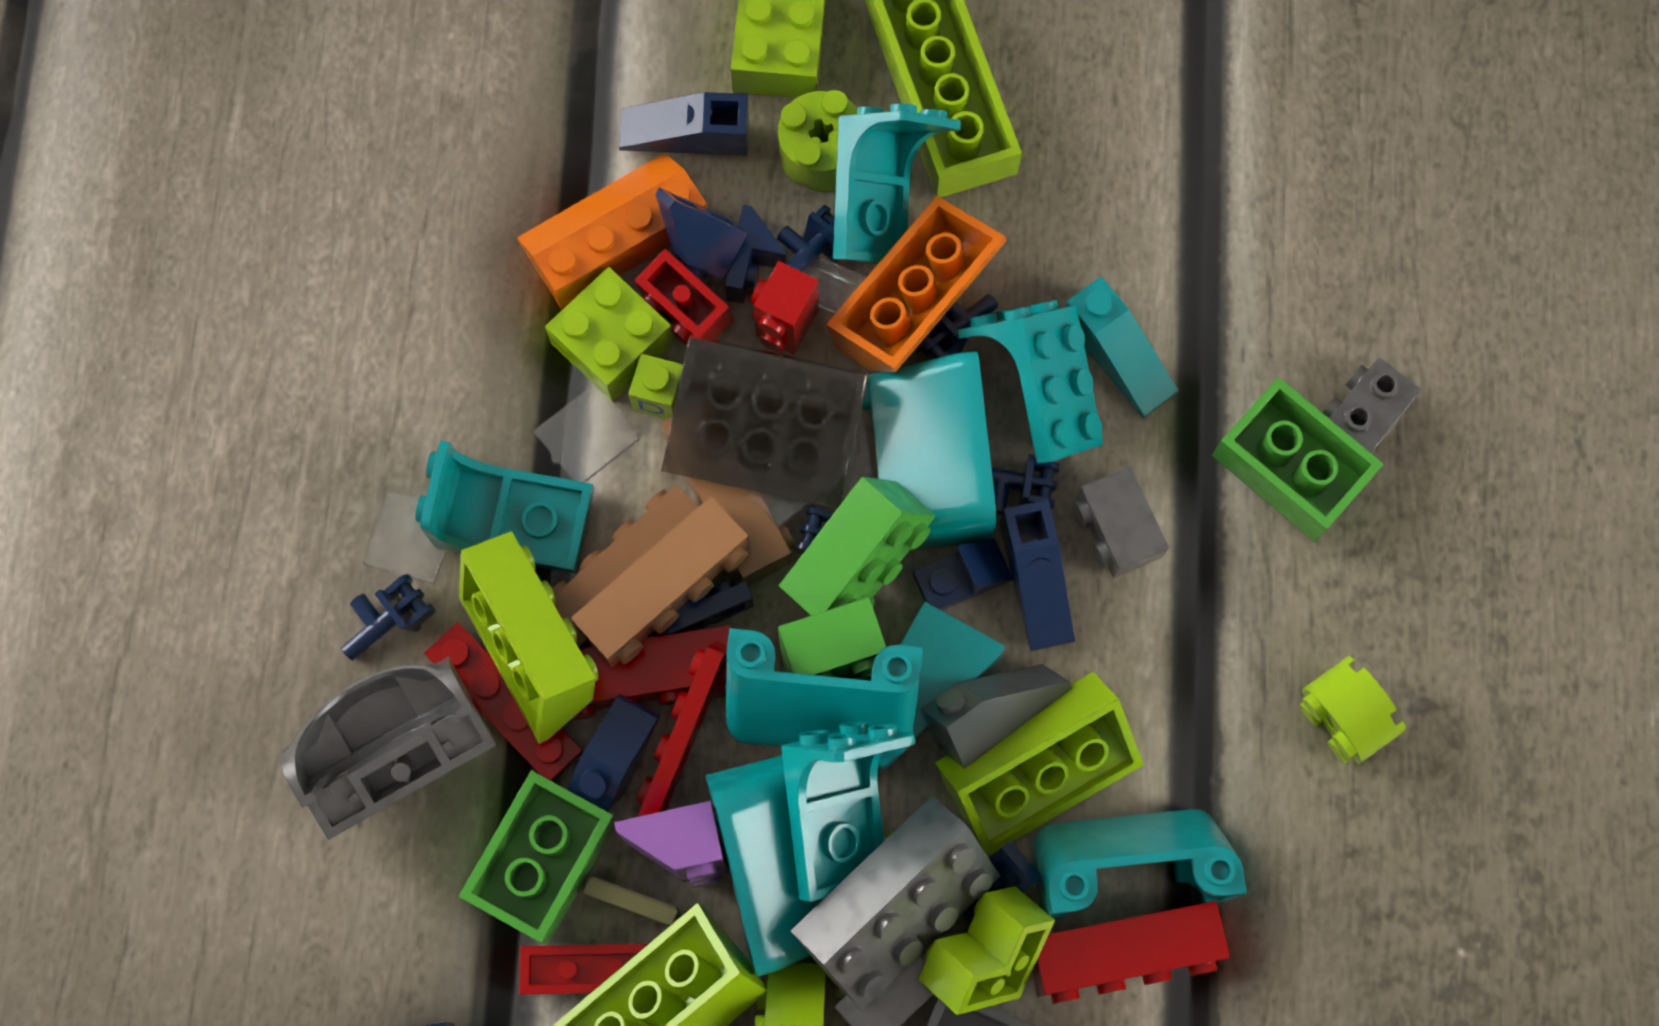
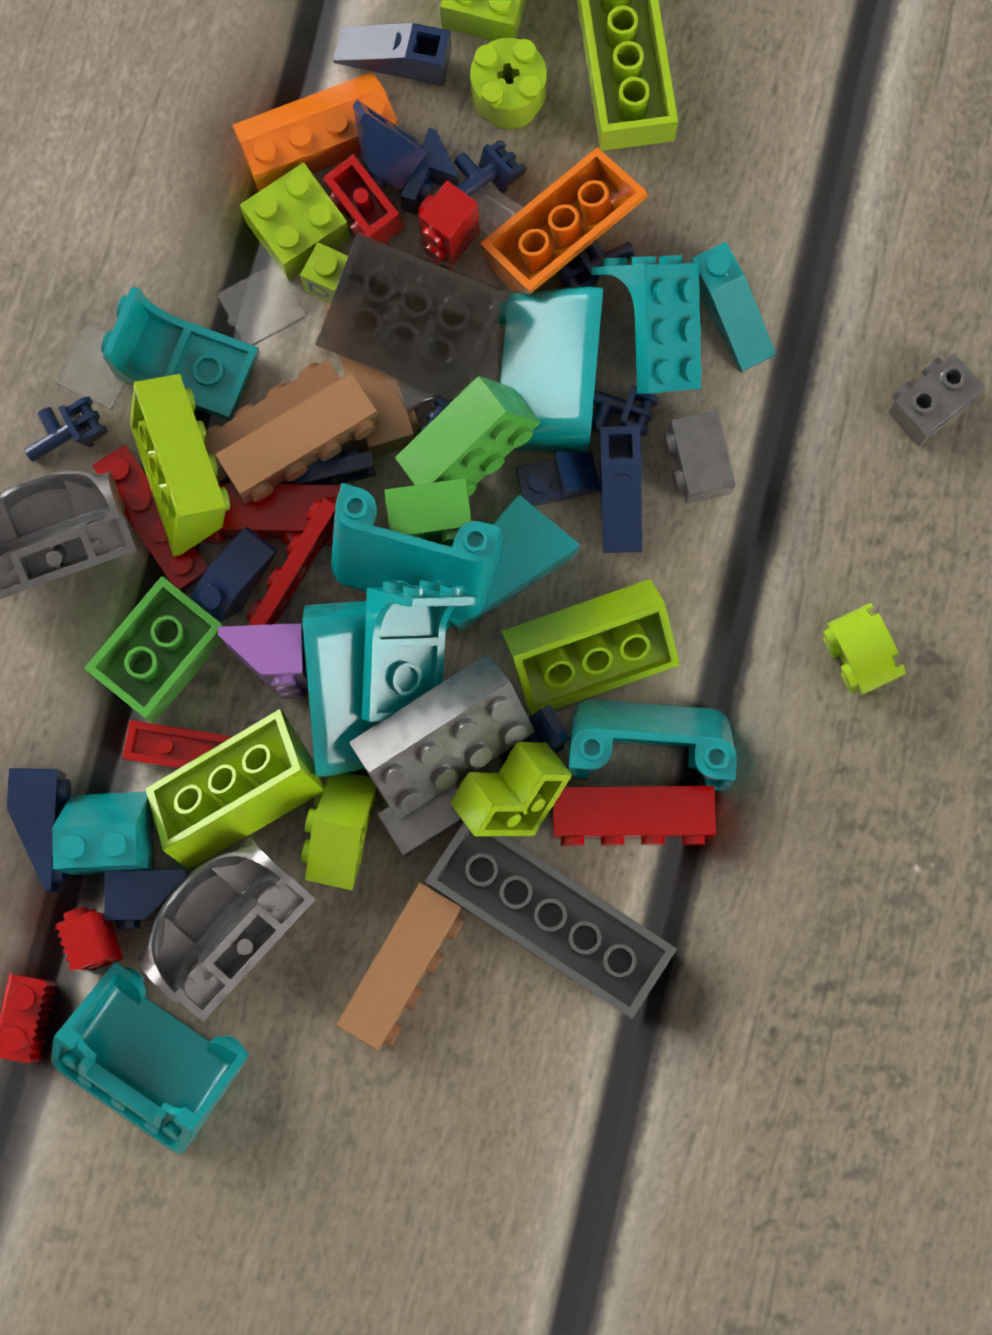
camera: 15 degrees right, 5 degrees up
(631, 901) = (226, 699): olive tile -> none
(875, 176) = (546, 121): teal bracket -> none
(987, 709) = (551, 594): dark grey slope -> none
(1296, 459) = (863, 428): bright green brick -> none

